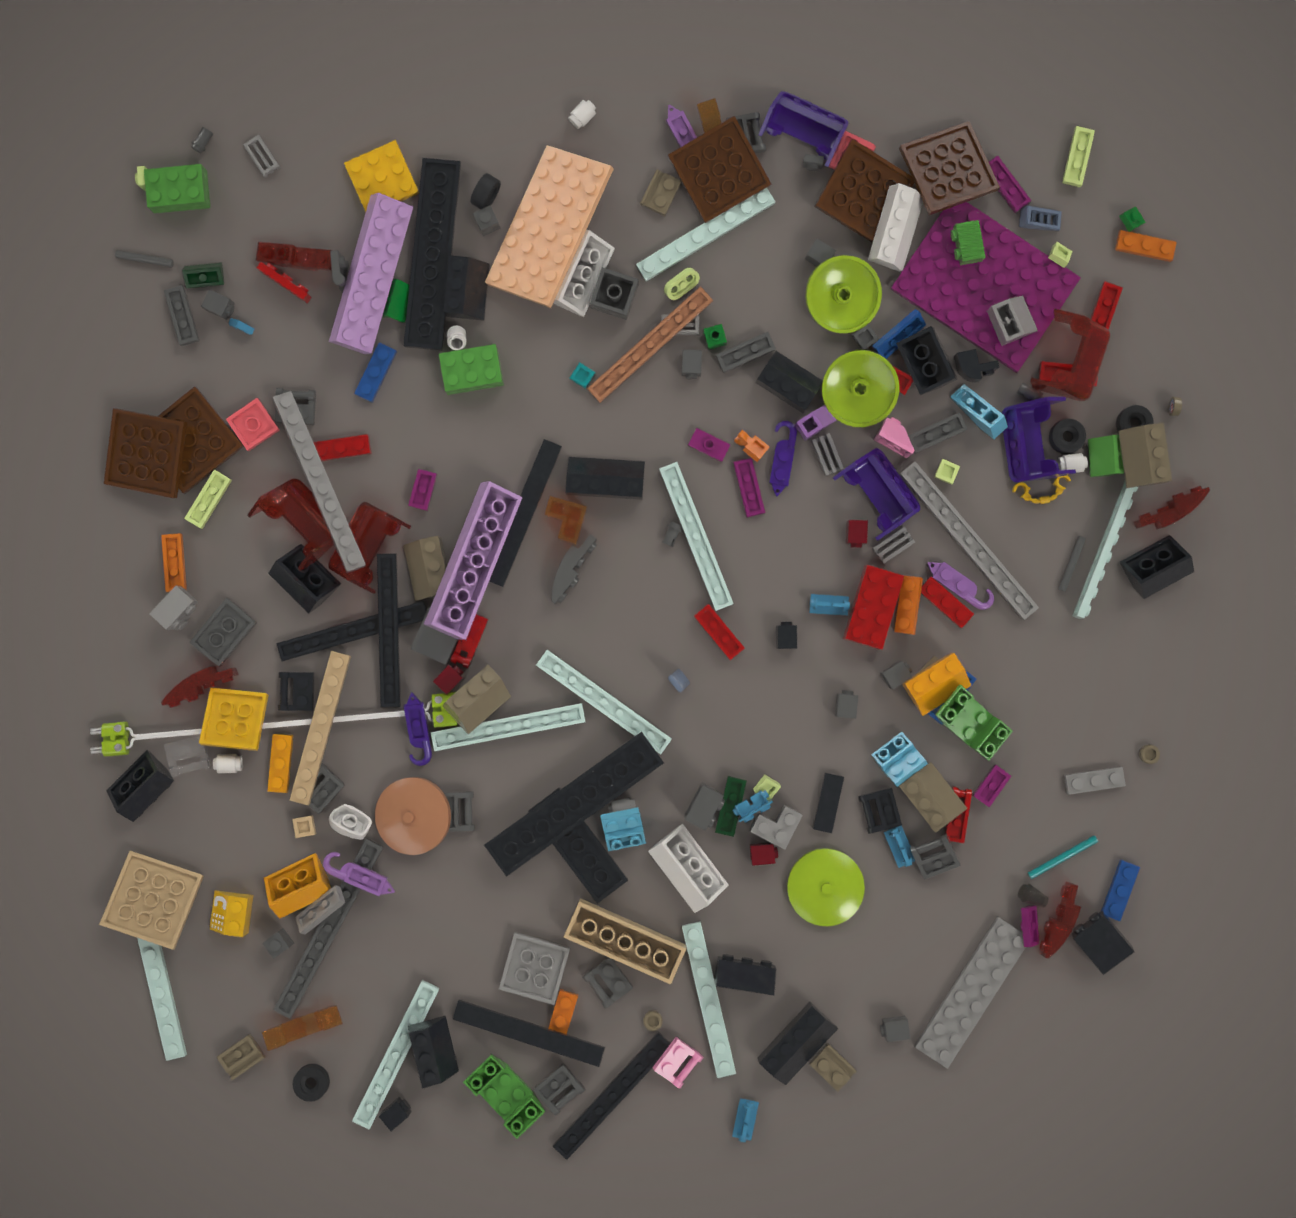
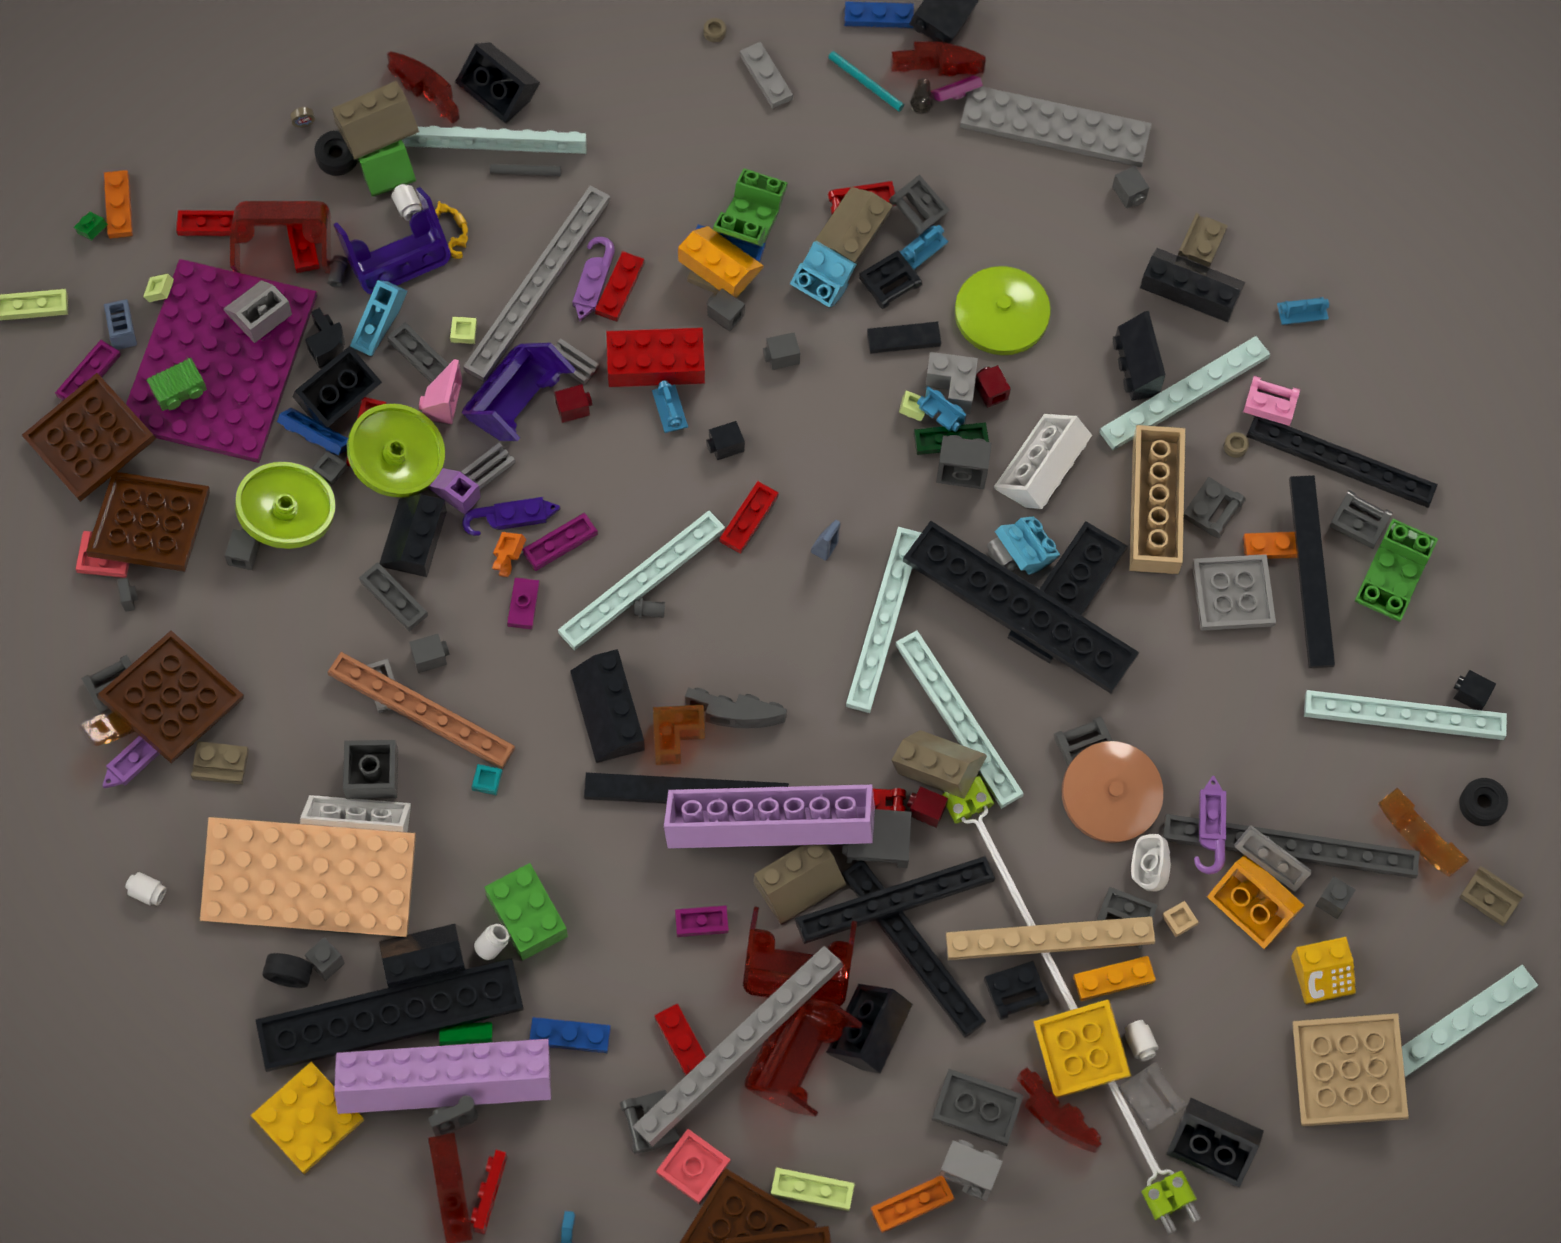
camera: 115 degrees left, 20 degrees down
(417, 728) = (1003, 820): dark purple plate -> none
(433, 1051) = (1383, 671): black slope -> none
(681, 284) = (330, 697): yellowish green plate -> none
(704, 234) = (263, 697): light aqua plate -> none
(715, 342) = (387, 644): green plate -> none
(806, 123) = (79, 611): dark purple windscreen -> none
(896, 227) = (182, 474): white slope -> none
(908, 605) = (640, 320): orange plate -> none
(991, 785) = (814, 173): magenta plate -> none
(1078, 436) = (376, 204): black tyre -> none

